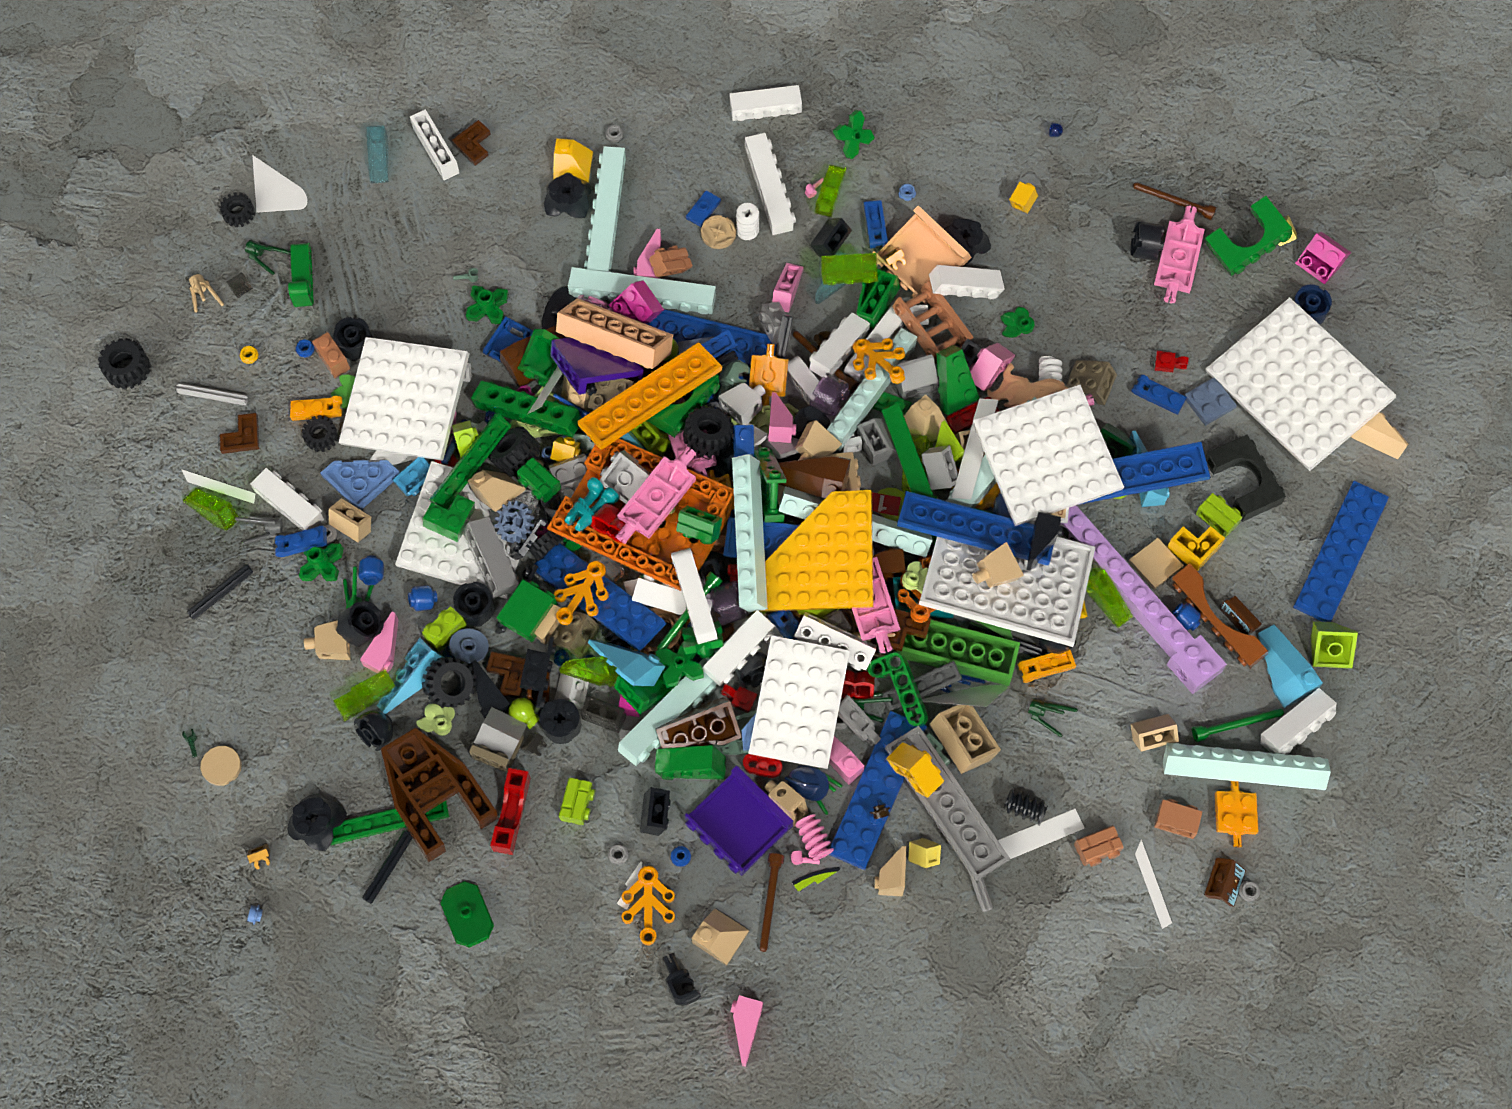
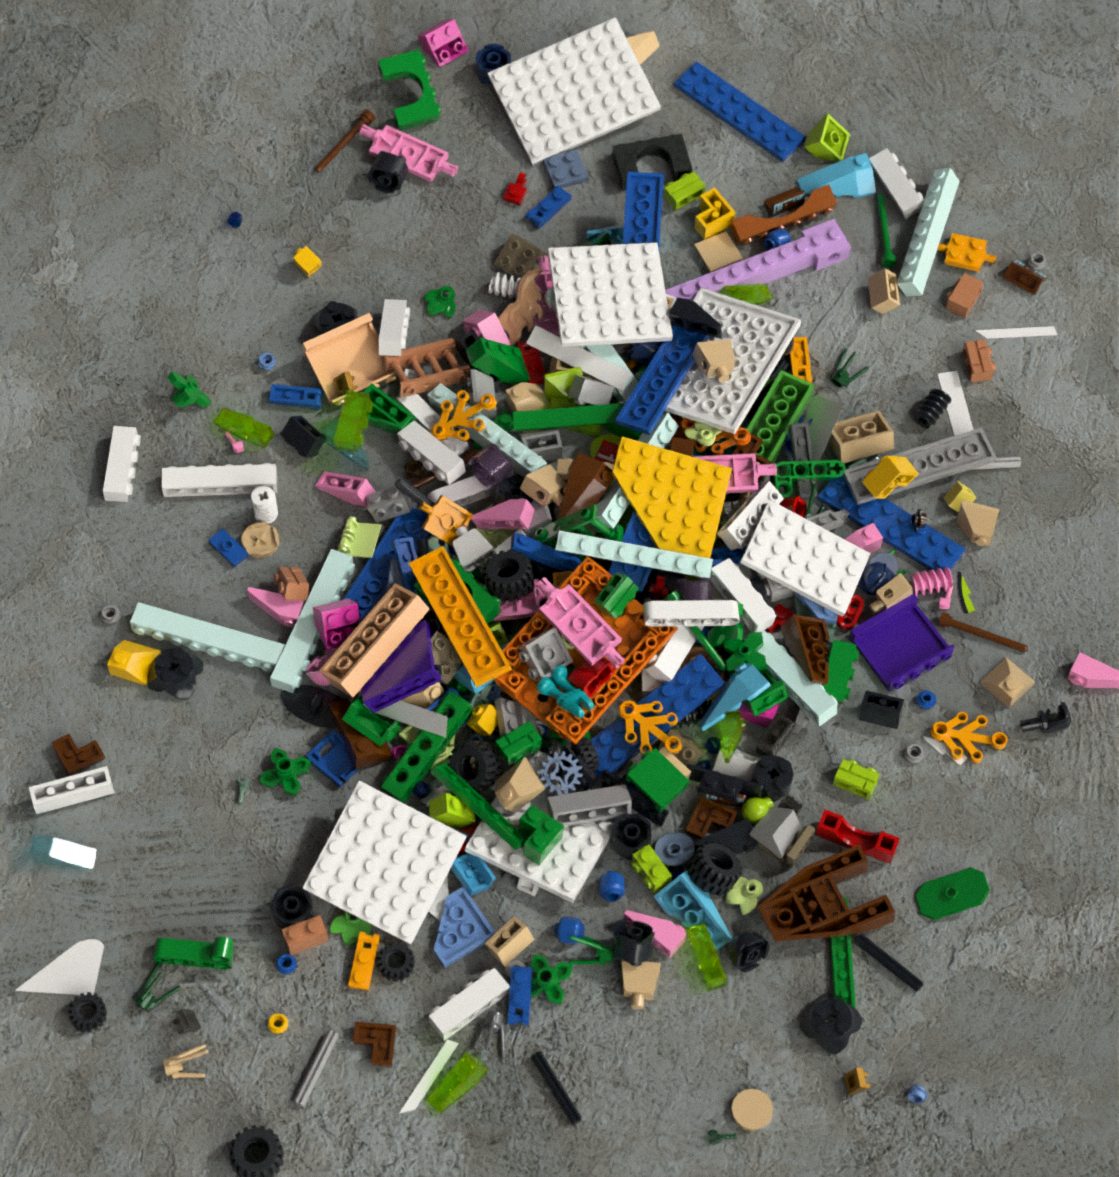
camera: 80 degrees left, 5 degrees down
(735, 308) = (359, 538): none -> yellowish green hinge

